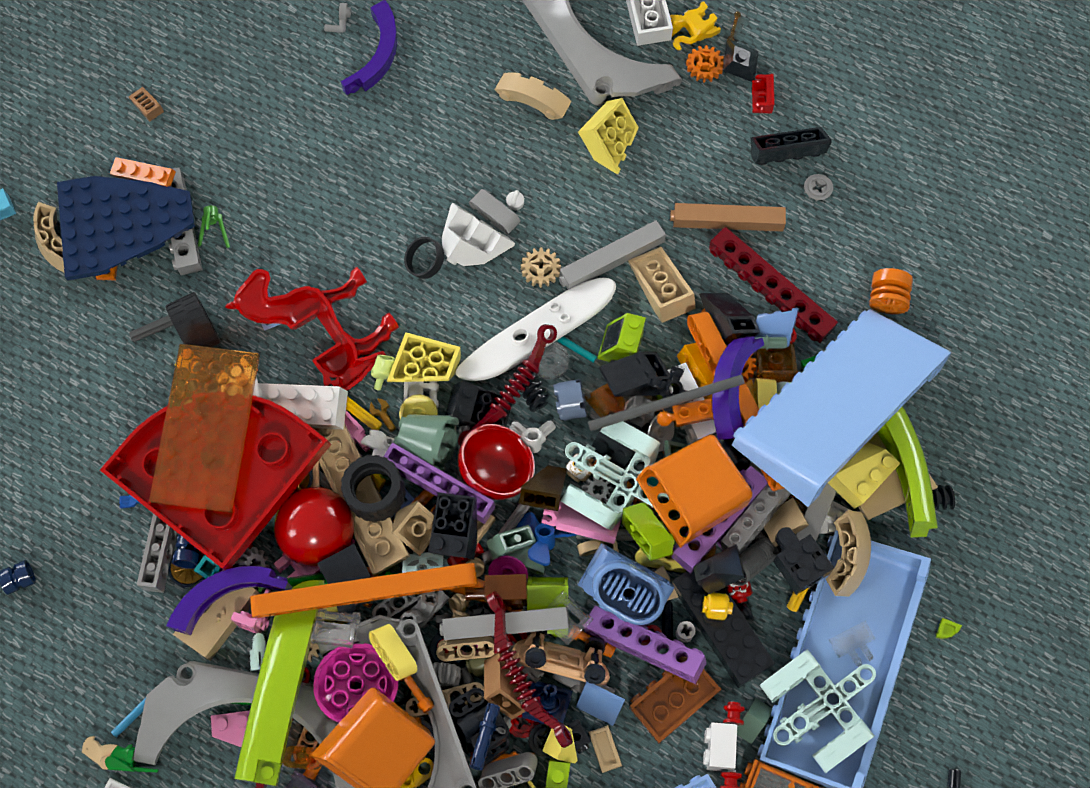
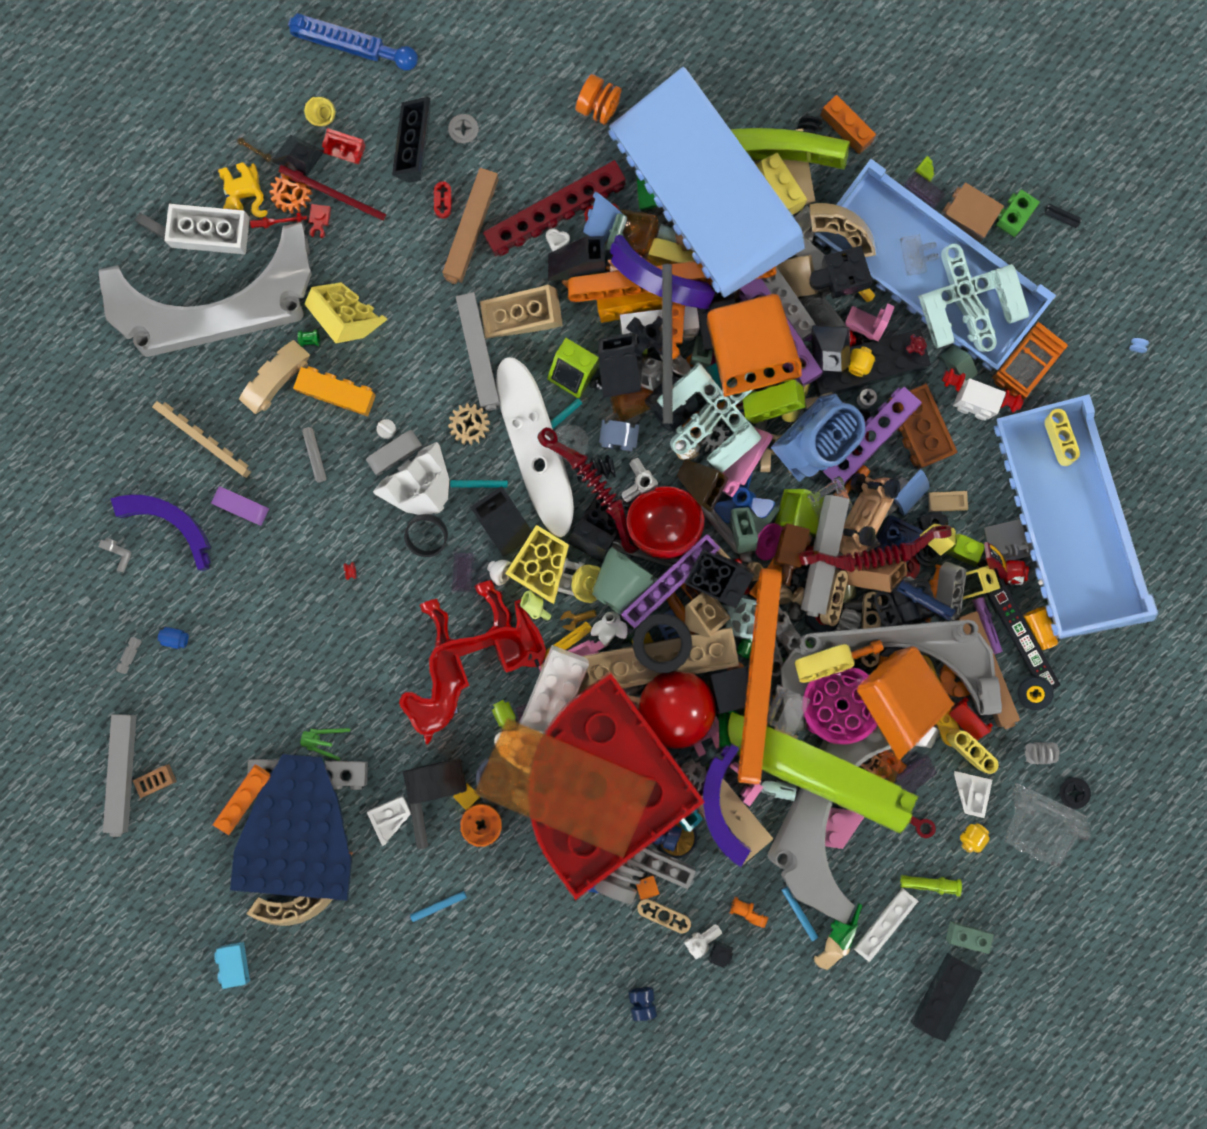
camera: 75 degrees left, 15 degrees up
(79, 367) = (438, 906): none -> dark azure bar
(79, 640) = (720, 954): none -> black brick
(88, 617) = (699, 942): none -> white axle
(104, 568) = (679, 917): none -> tan beam
(128, 654) = (746, 910): none -> orange connector
(130, 519) = (618, 883): none -> light grey wheel
(133, 552) = (647, 887): none -> orange tile
(145, 74) = (119, 774): none -> light grey brick
(151, 300) = (389, 817): none -> white wing
(152, 372) = (485, 835): none -> orange wheel
(251, 53) = (128, 655): none -> light grey axle
(273, 372) = (502, 712): none -> lime brick
(276, 82) = (173, 638): none -> blue brick
(374, 205) = (350, 571): none -> red bush
(399, 301) = (463, 572): none -> clear purple panel
(407, 101) = (240, 505): none -> medium lavender beam
(409, 326) = (498, 570): none -> white brick
(457, 60) = (196, 433): none -> tan plate
(458, 318) = (502, 521): none -> black slope
(473, 148) = (314, 454): none -> light grey axle
(488, 294) = (478, 483): none -> teal bar
(535, 147) = (333, 391): none -> light orange brick
(577, 113) = (309, 338): none -> green bush
(671, 53) = (266, 222): none -> red piece
(691, 93) = (319, 217): none -> red plate
(719, 63) = (298, 177): none -> dark red bar
(744, 296) = (557, 239): none -> white tile
(745, 189) = (447, 200): none -> red beam
(754, 660) = (918, 345): none -> dark red plant
(763, 609) = (868, 324): none -> bright pink bracket
(788, 62) = (319, 106): none -> light yellow hair
(861, 74) = (350, 41): none -> blue gear
(920, 688) = (972, 211): none -> medium nougat brick
(923, 632) = (924, 190): none -> panel
(936, 742) = (1018, 214): none -> bright green brick
(961, 534) = (848, 124): none -> orange brick

